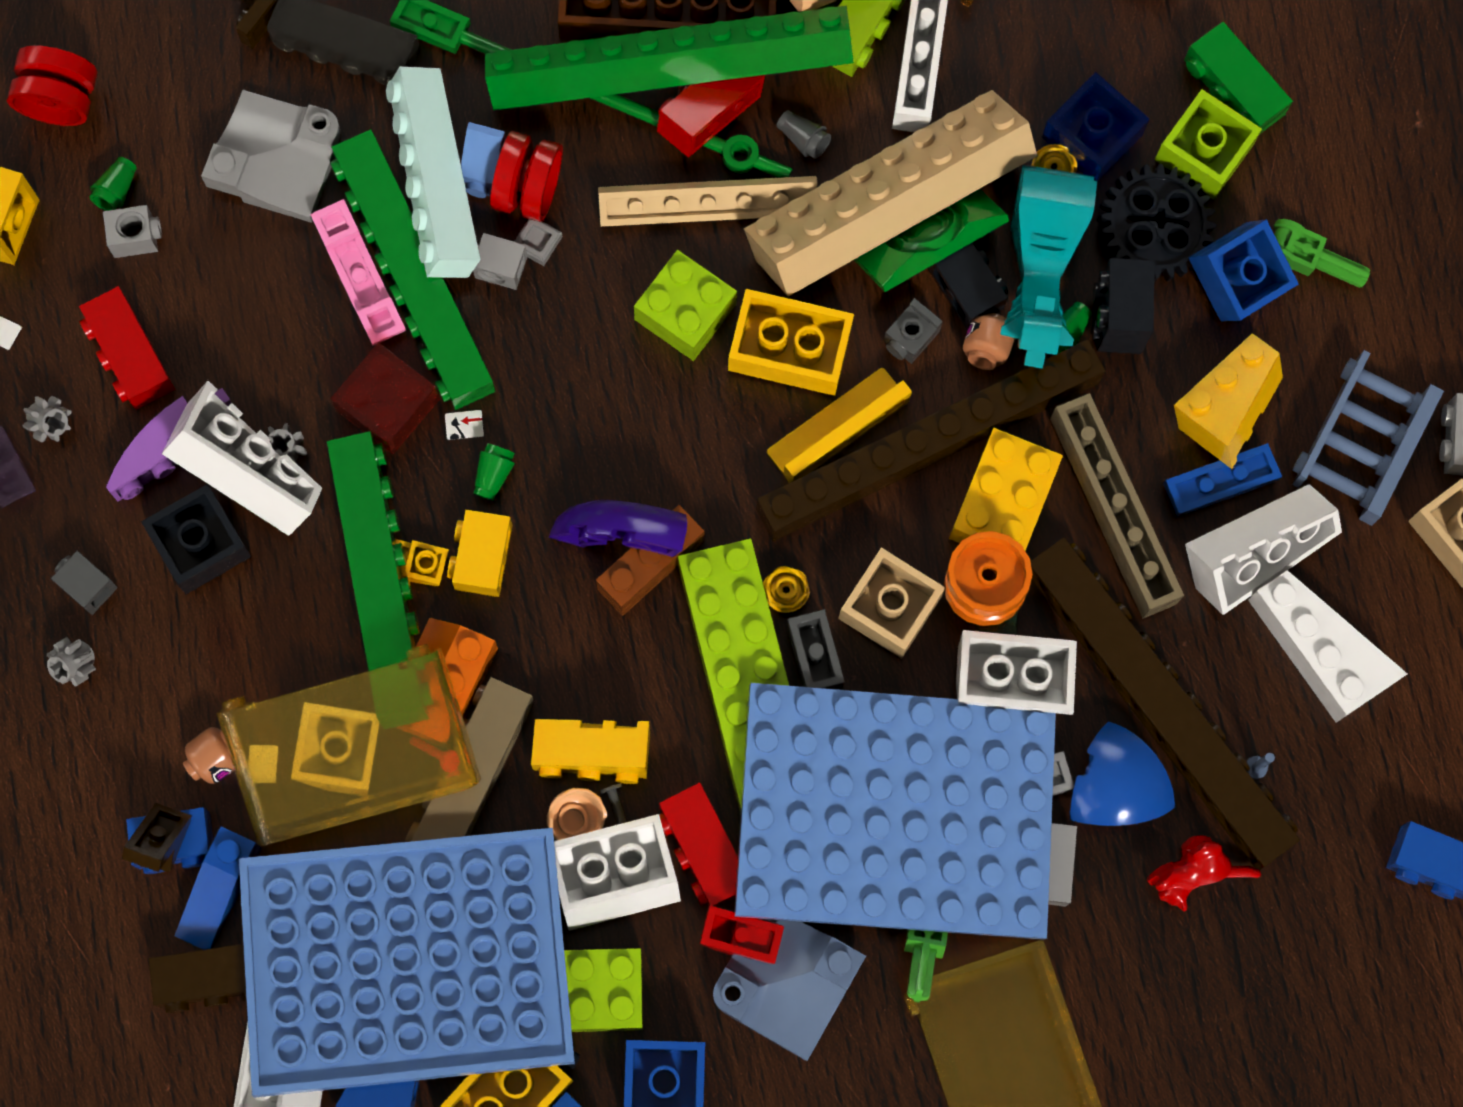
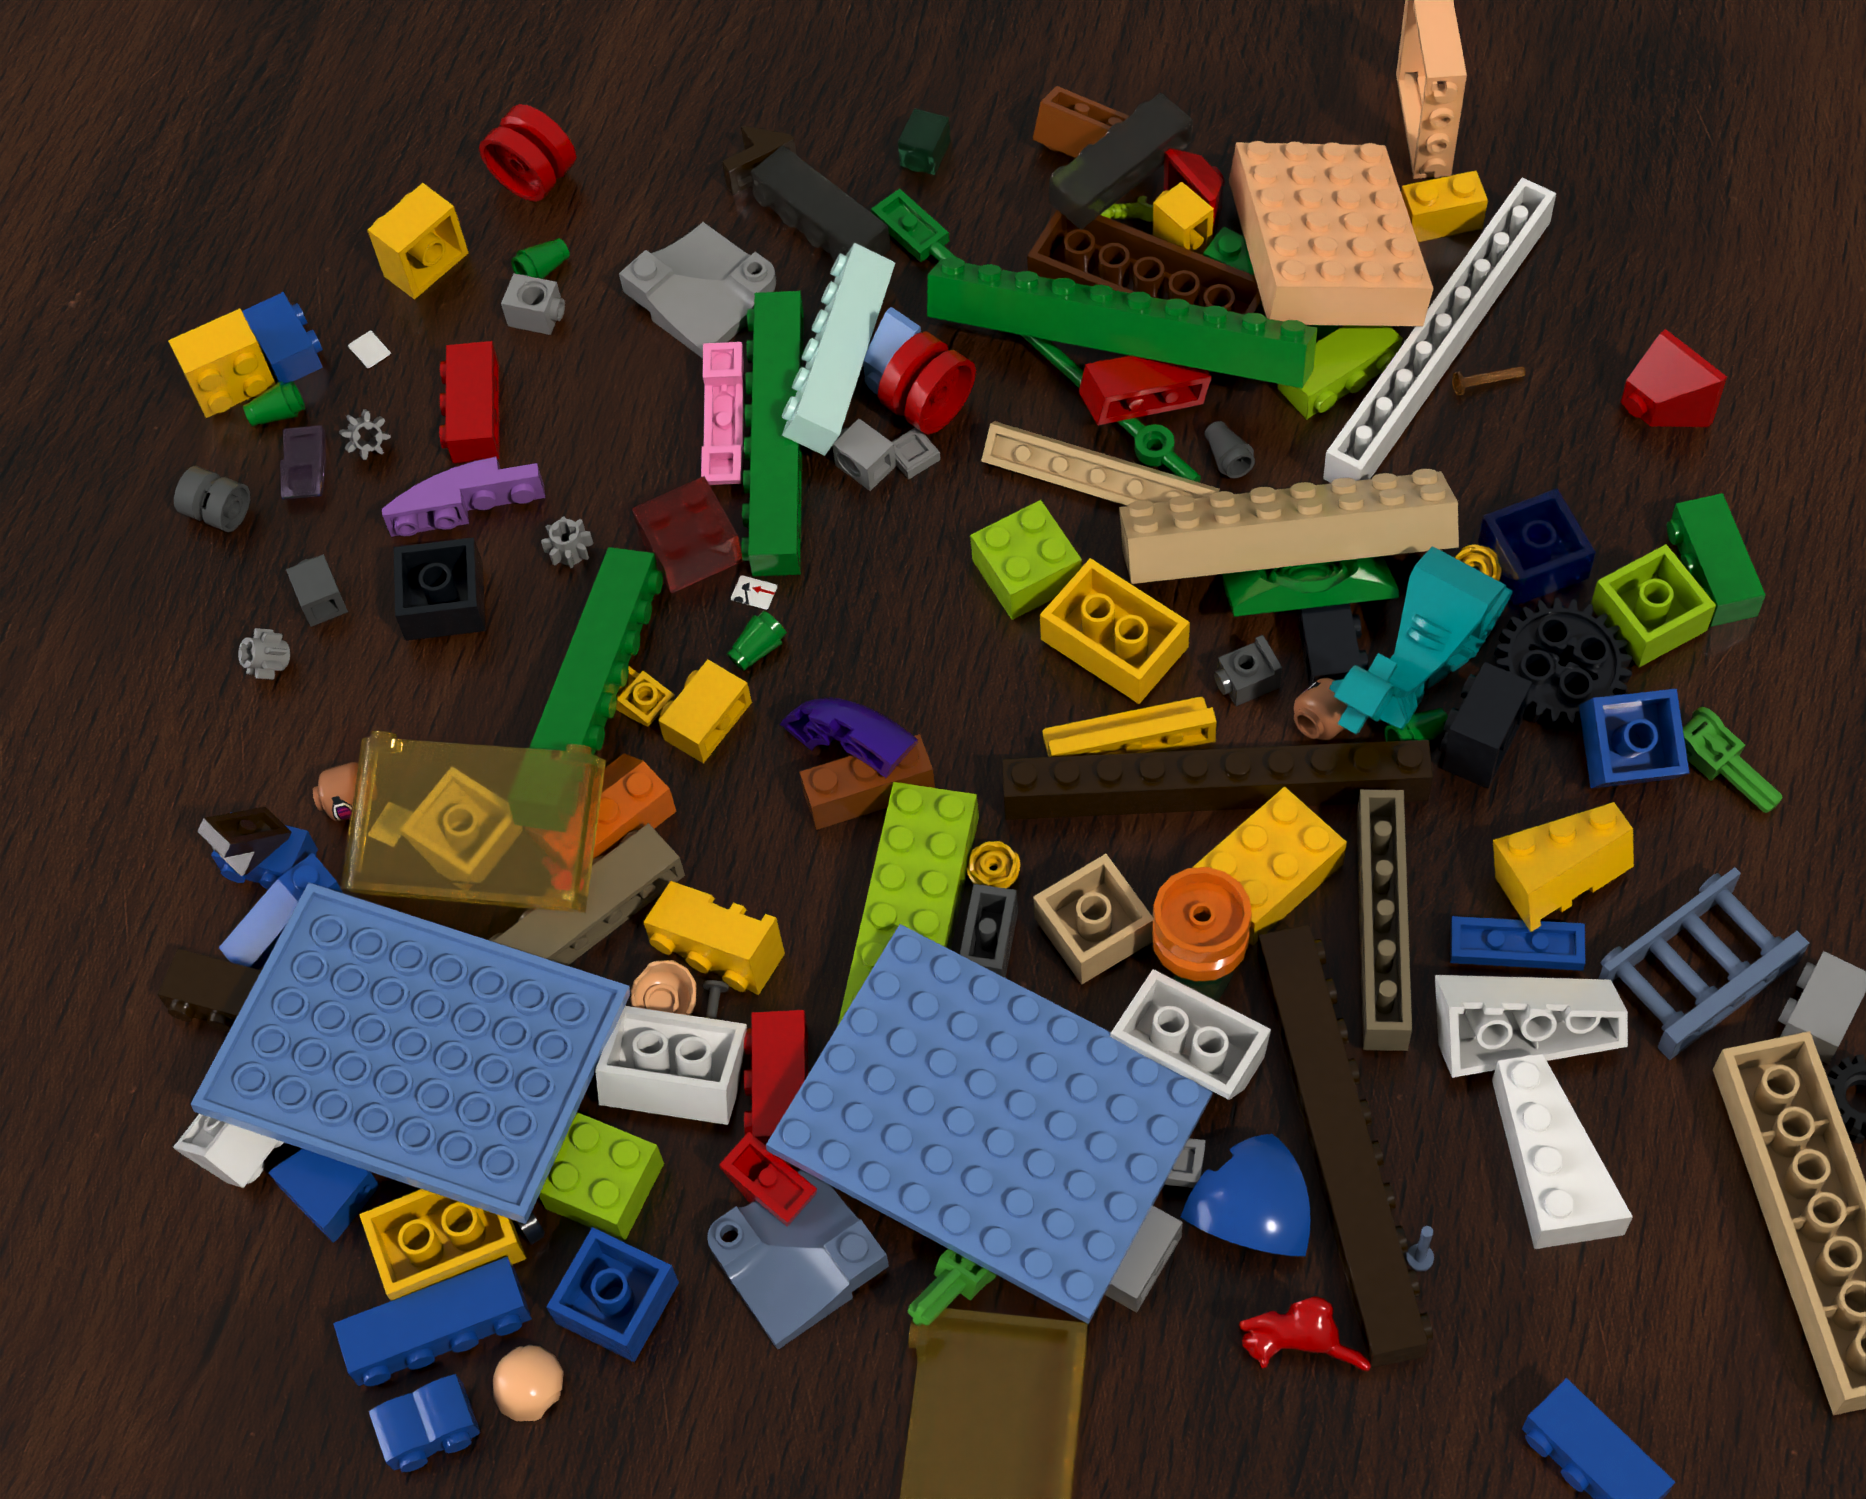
camera: 35 degrees right, 15 degrees down
(239, 462) = (514, 530): white wedge -> none

